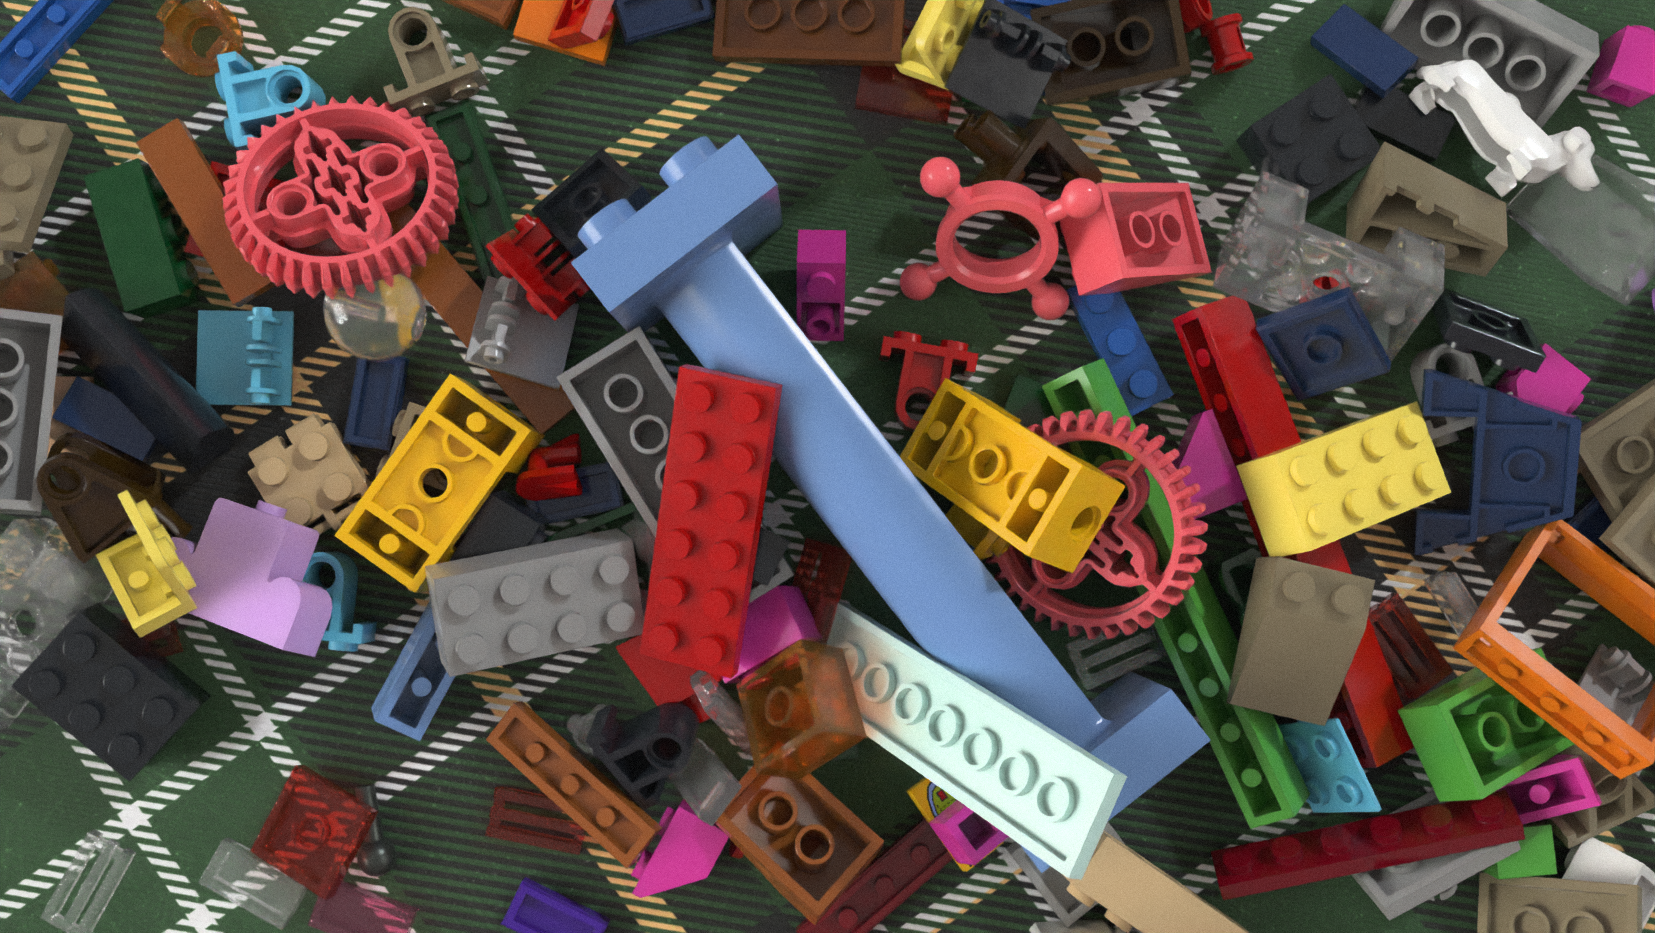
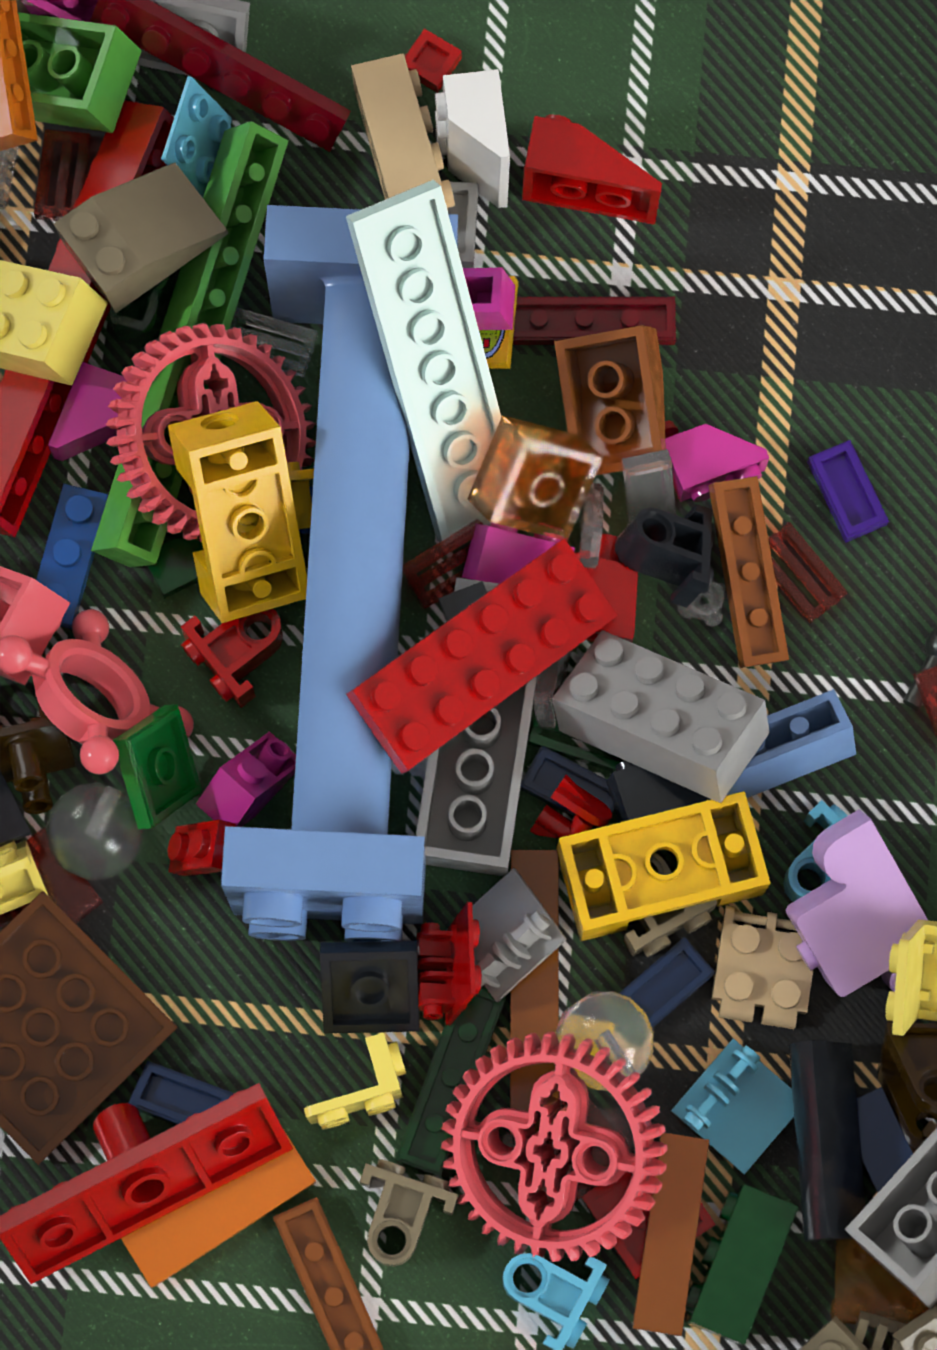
camera: 140 degrees left, 10 degrees down
(517, 117) = (376, 1099): none -> light yellow bracket
(810, 197) = (197, 848): none -> red plate
(897, 226) = (157, 766): none -> green tile
(898, 138) = (93, 831): none -> clear piece

